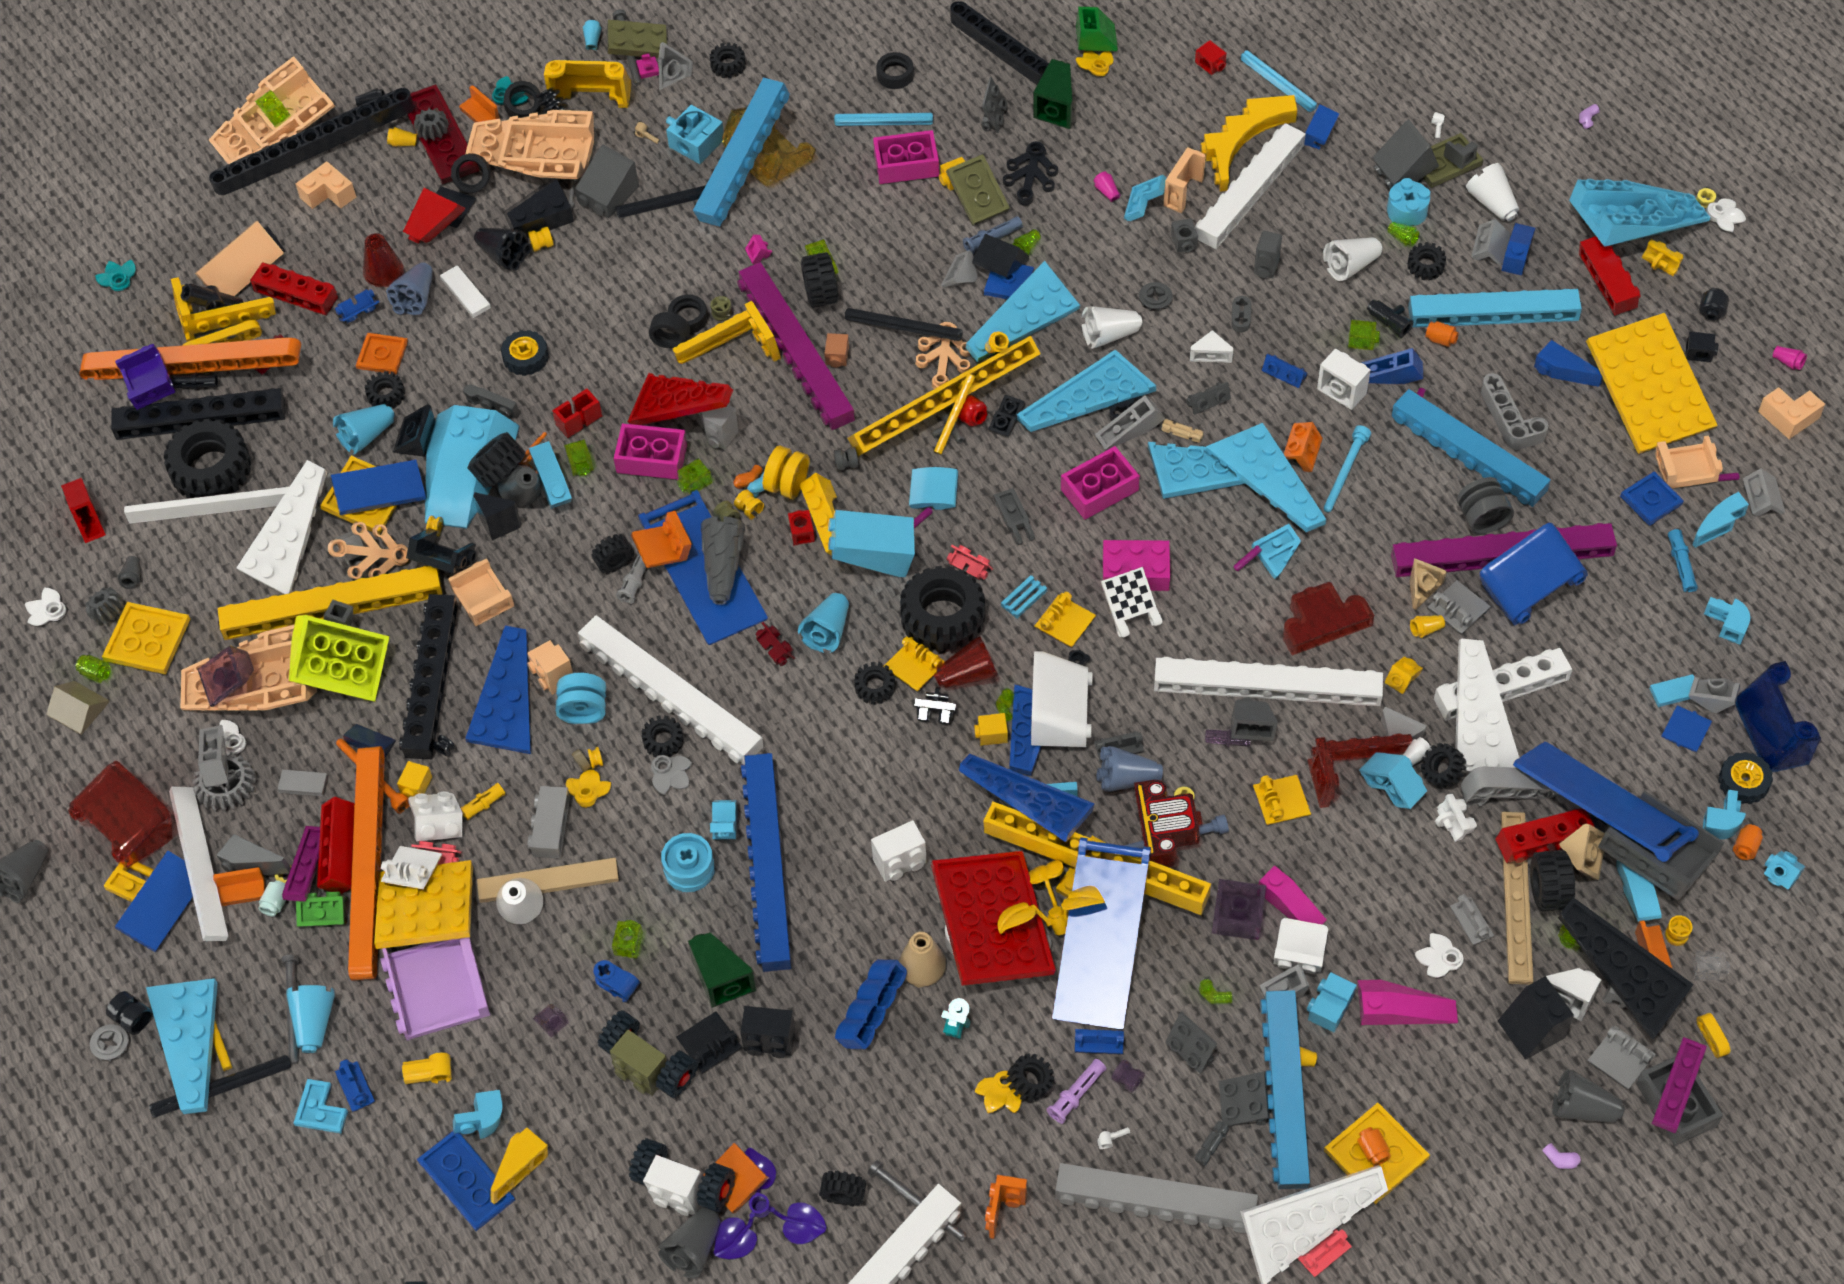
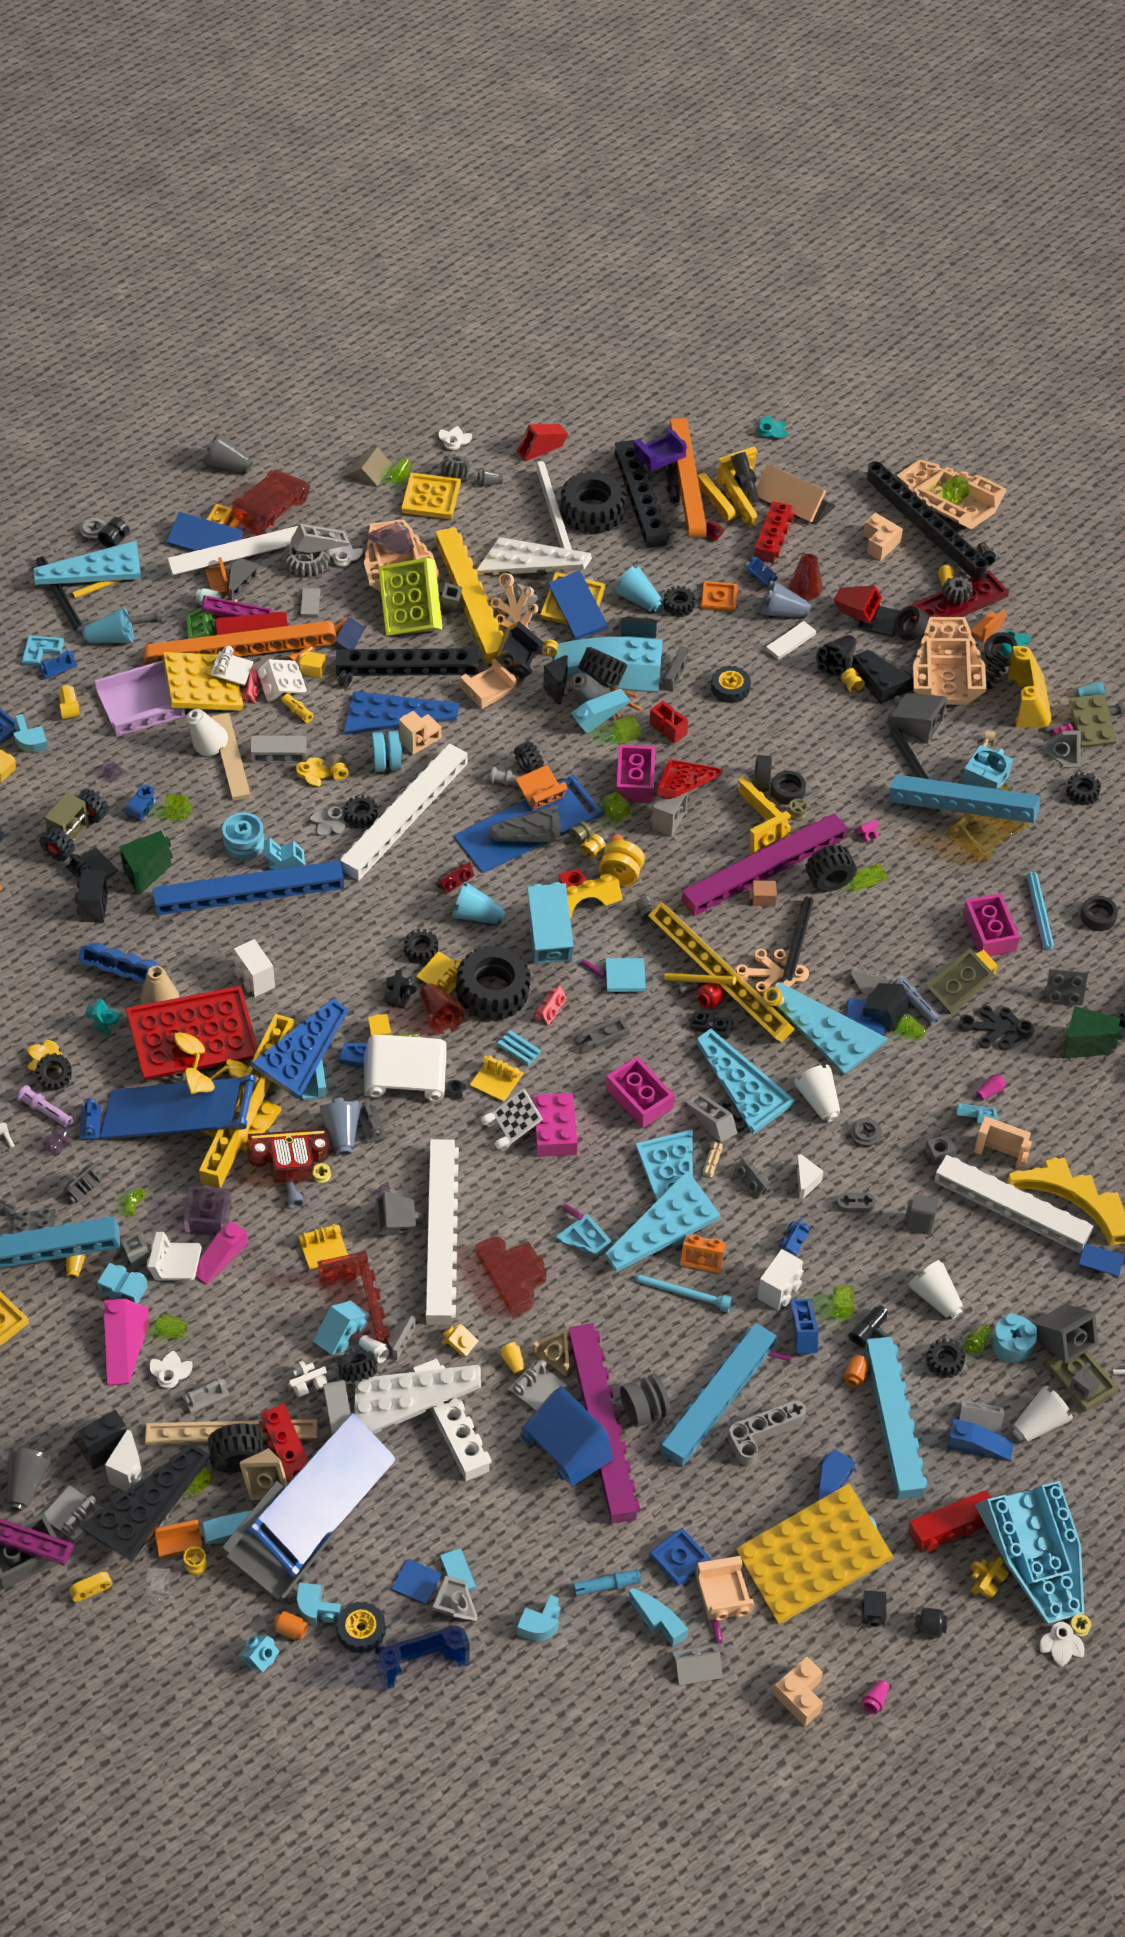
camera: 80 degrees right, 5 degrees down
(1387, 952) = (171, 1326): none -> clear neon green brick

